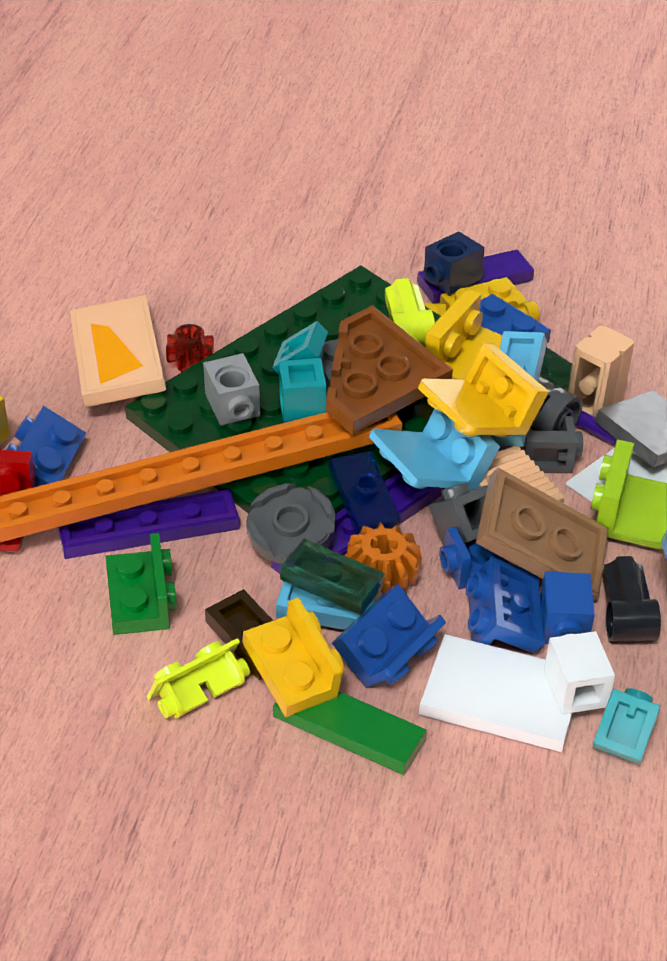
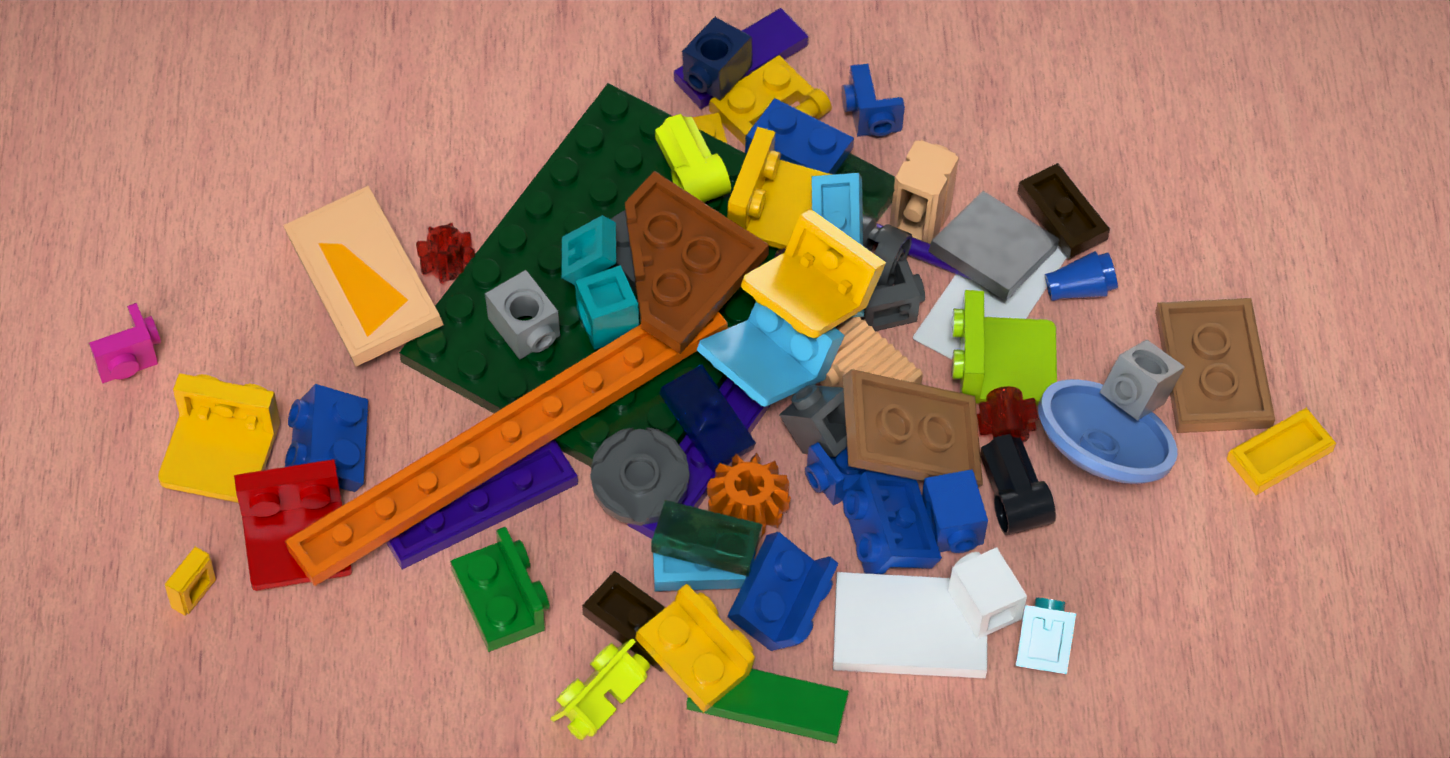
camera: 15 degrees left, 15 degrees up
(571, 322) = (869, 114): none -> blue bracket
(635, 540) = (1007, 413): none -> clear red gear

